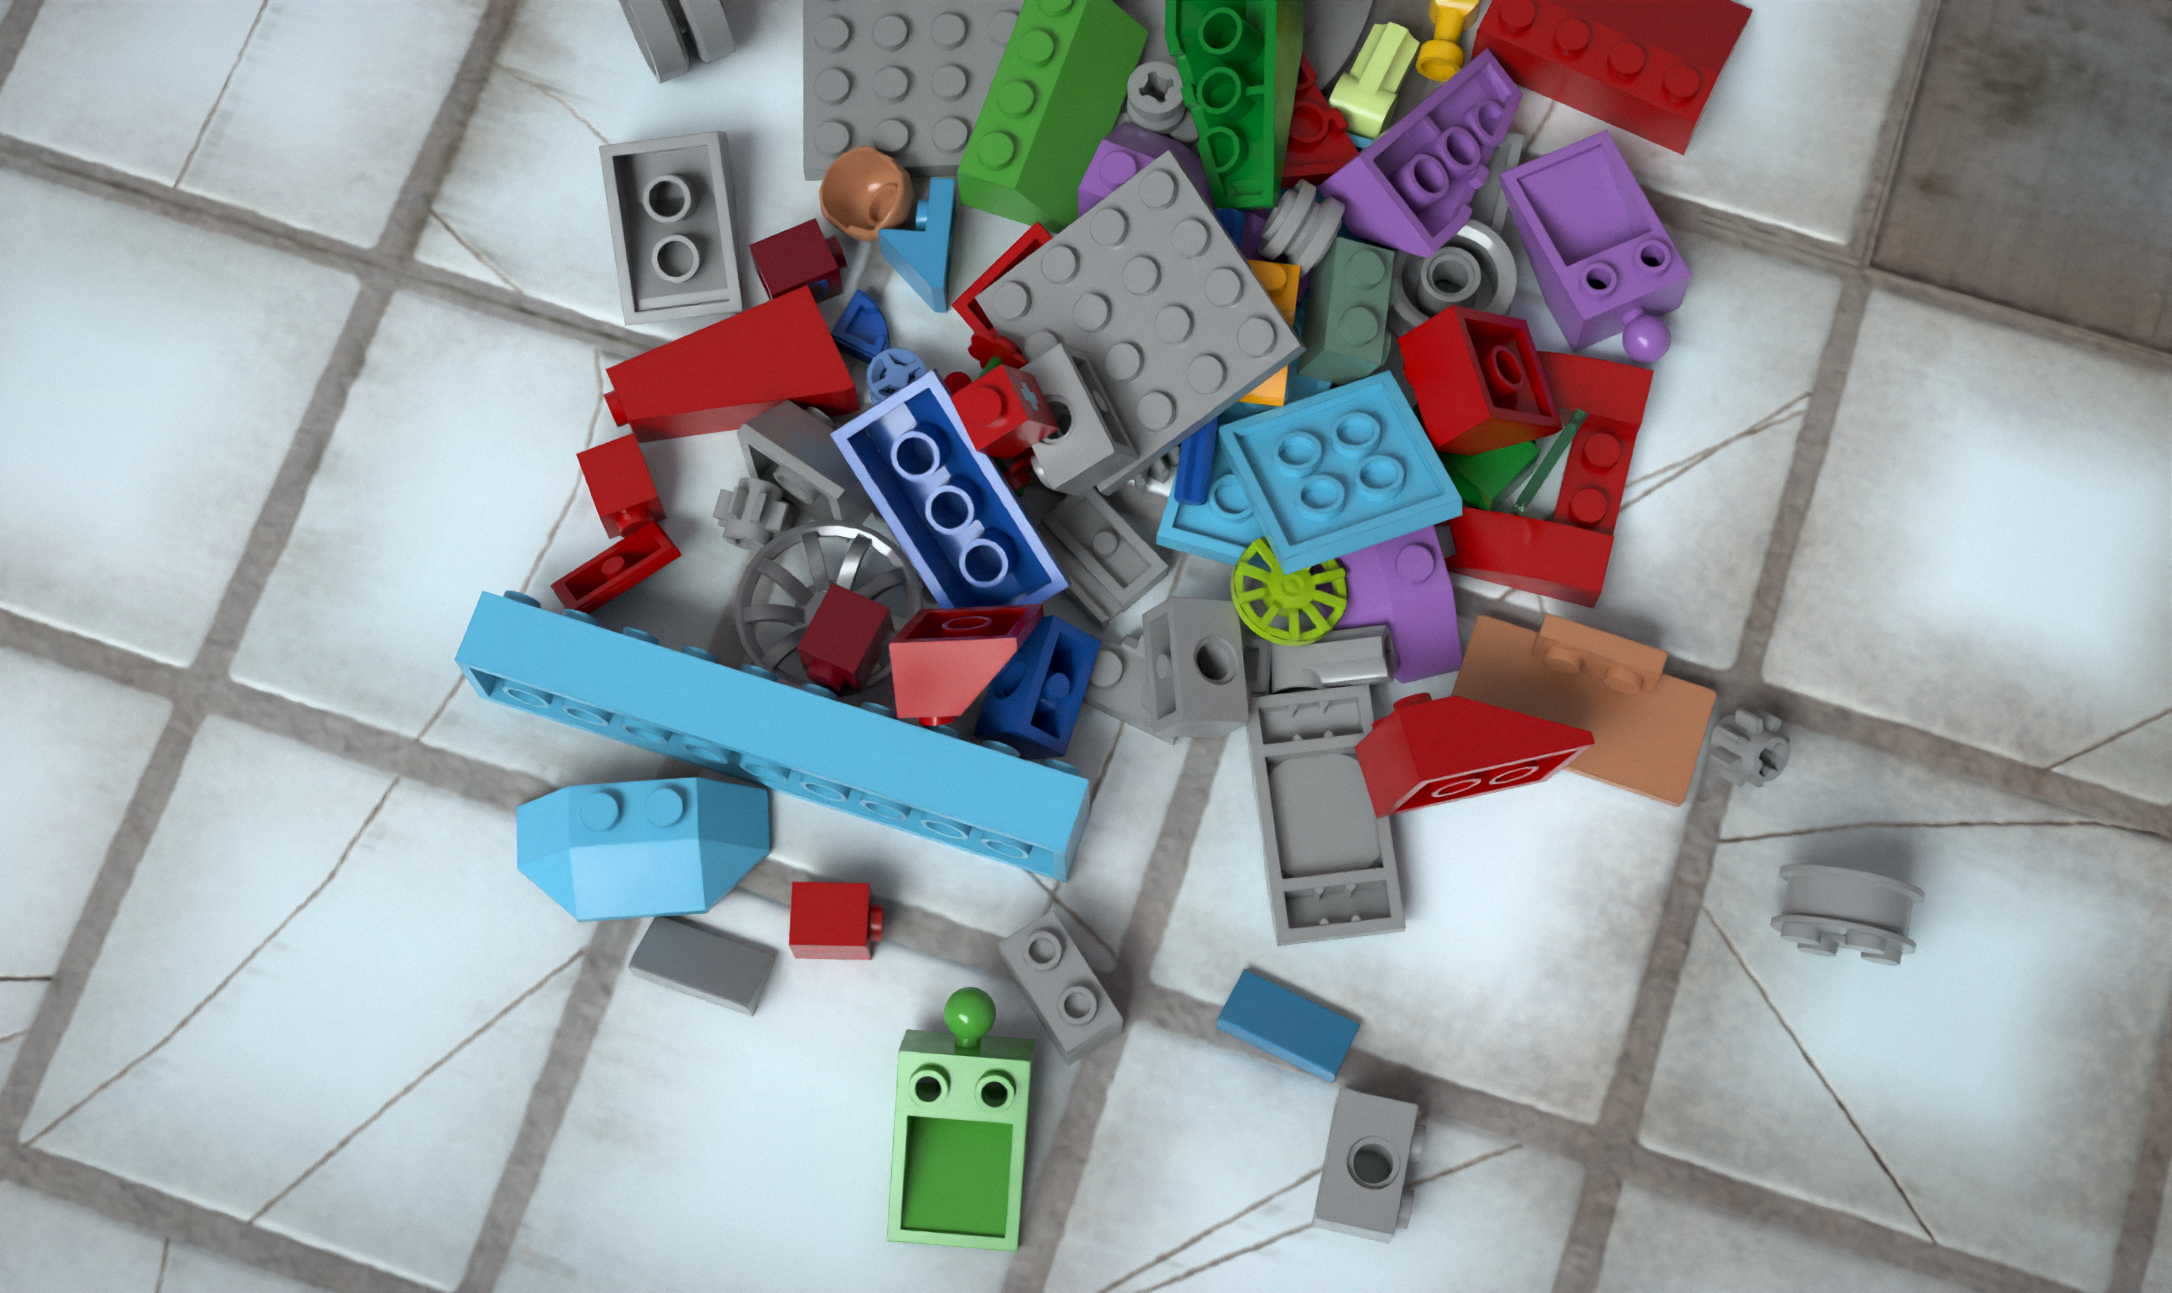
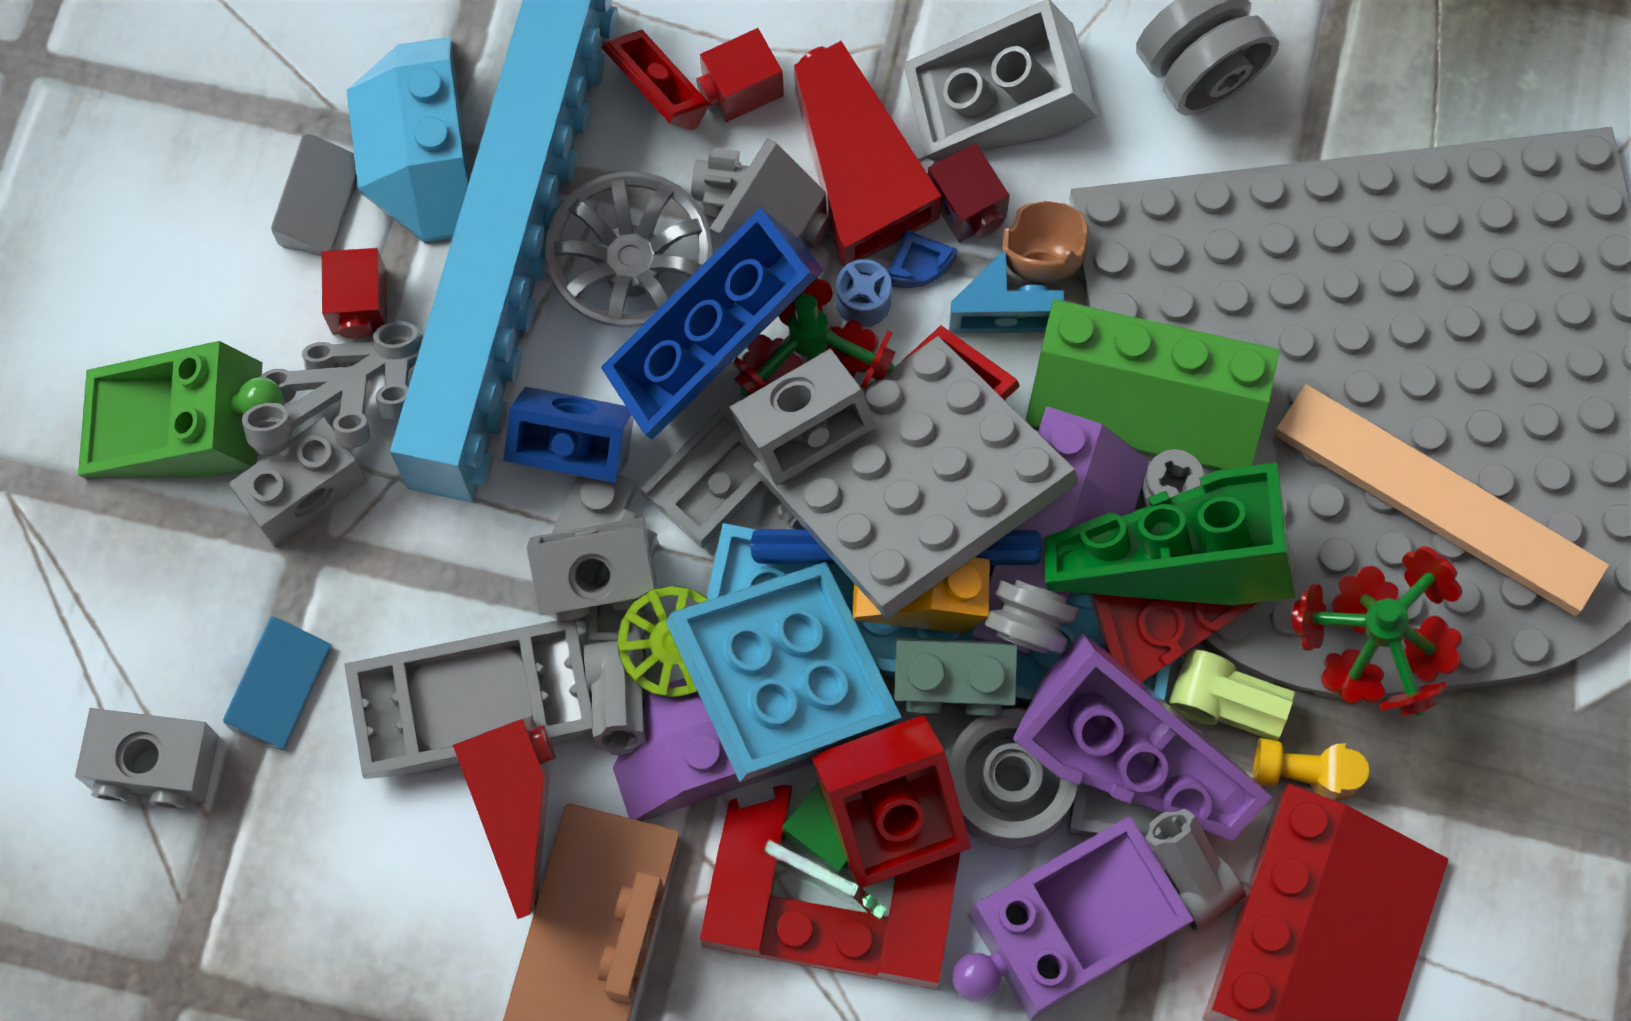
camera: 85 degrees right, 0 degrees up
(845, 640) = (584, 255): dark red brick -> none
(952, 655) = (571, 340): slope -> none
(952, 931) = (393, 351): none -> light grey plant
(1004, 412) = (786, 346): red brick -> none
(1546, 127) = (1193, 868): none -> light grey piece

